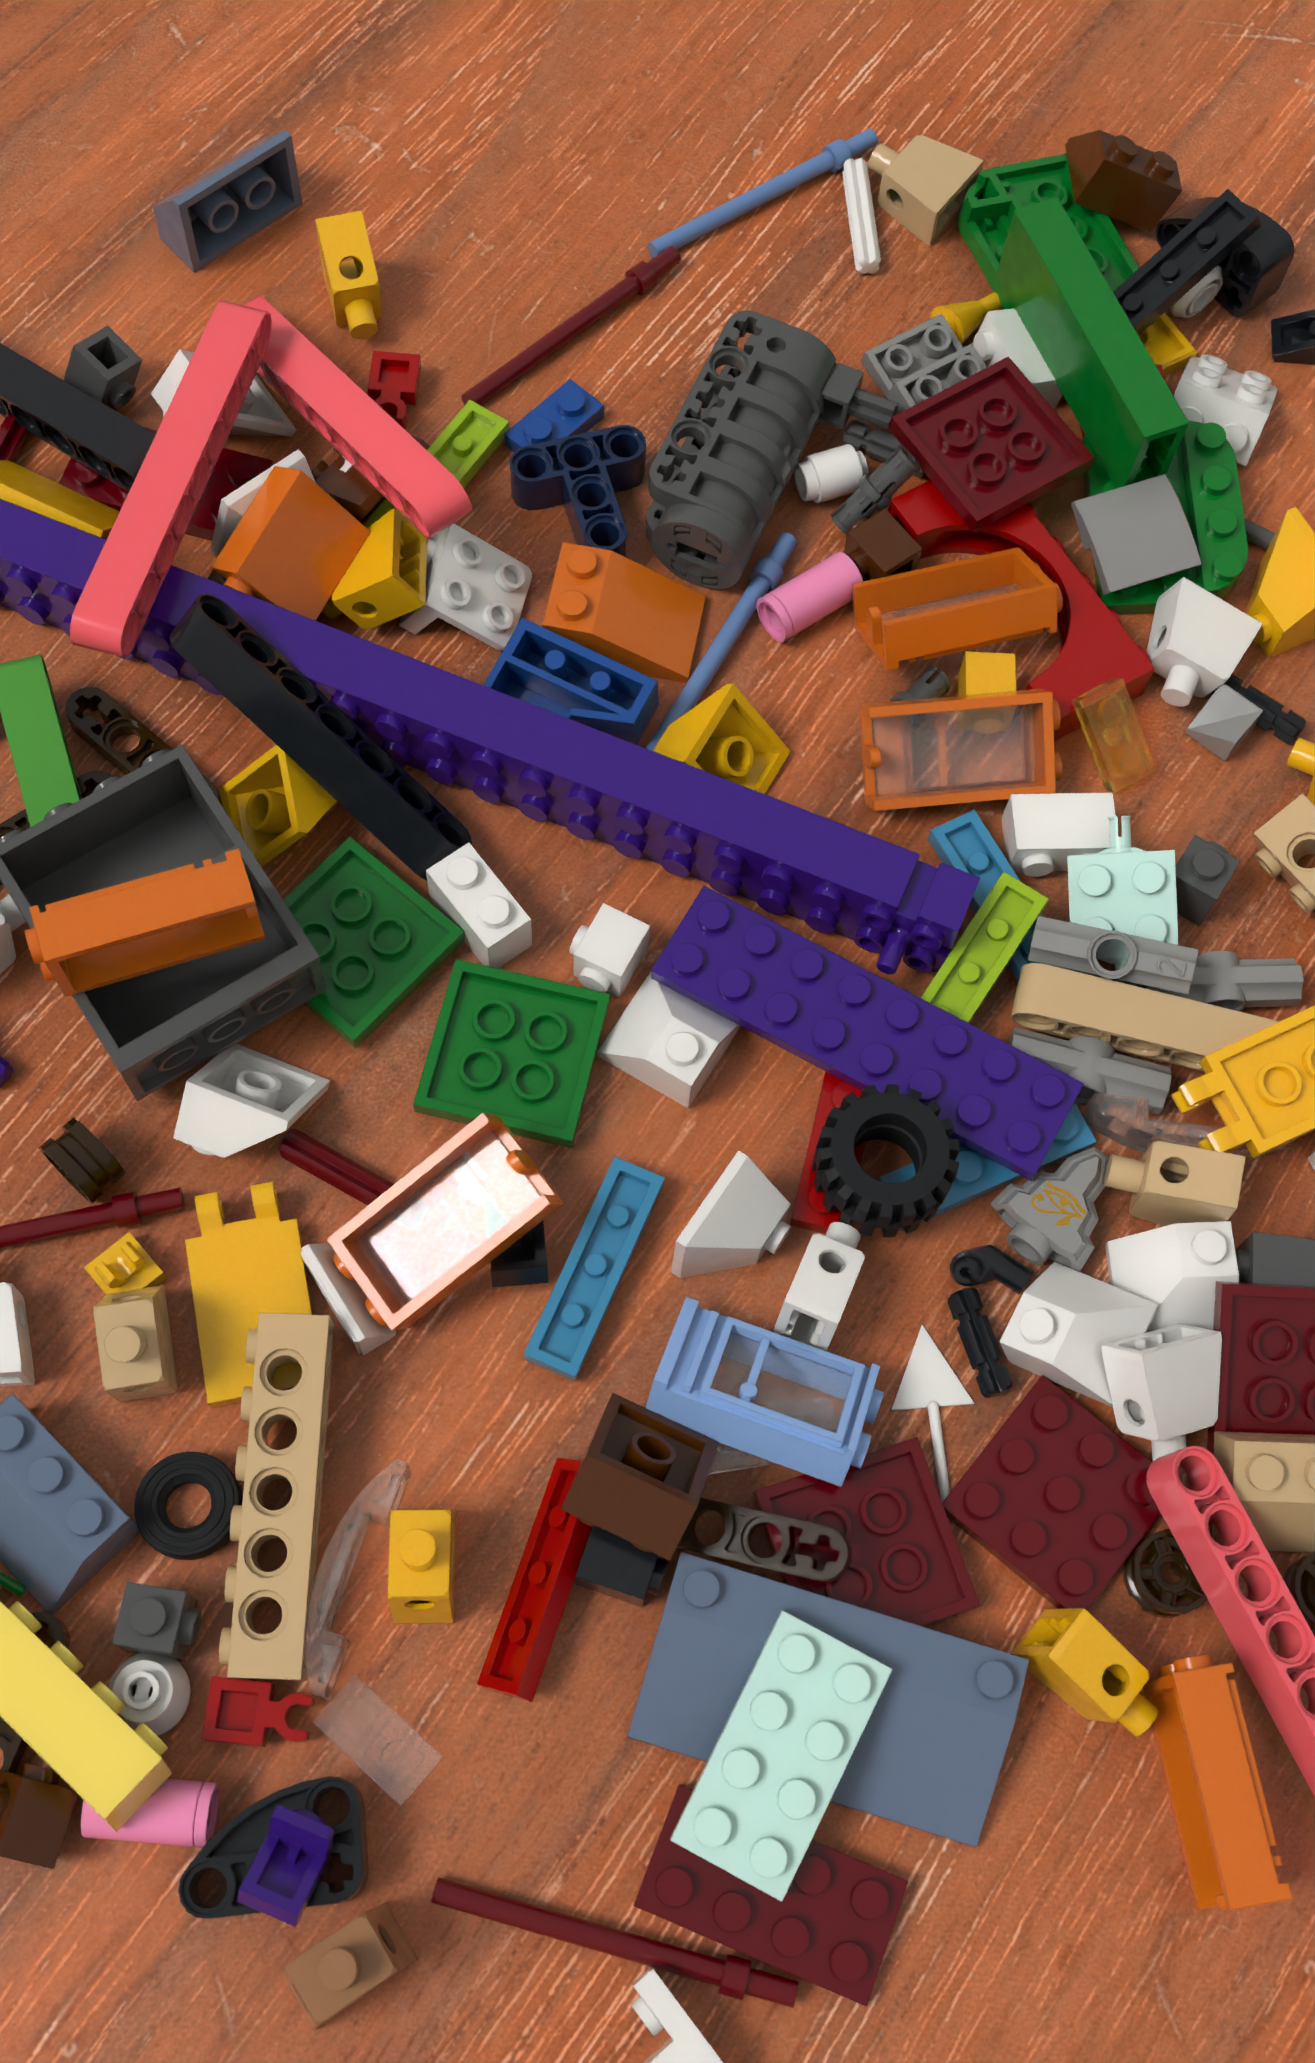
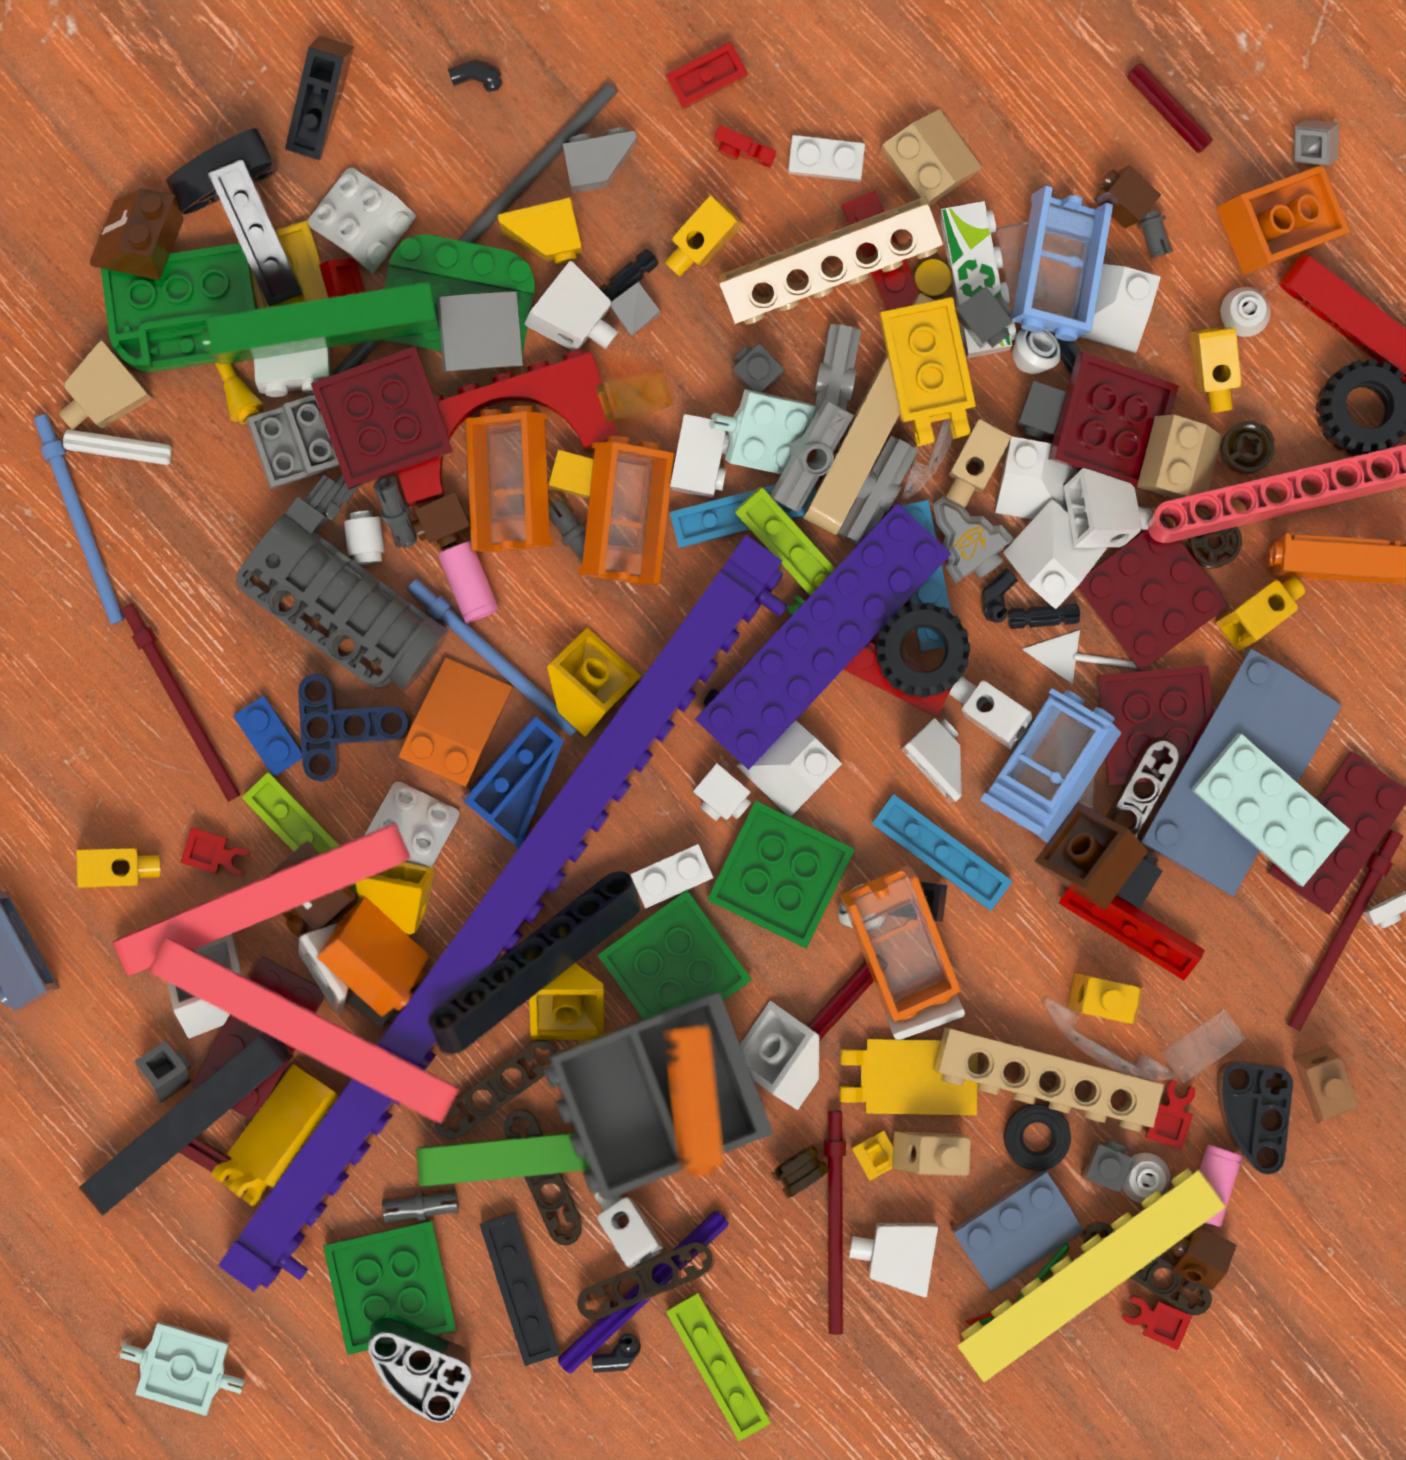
camera: 70 degrees left, 20 degrees up
(287, 1865) = (1270, 1108): dark purple bracket -> none

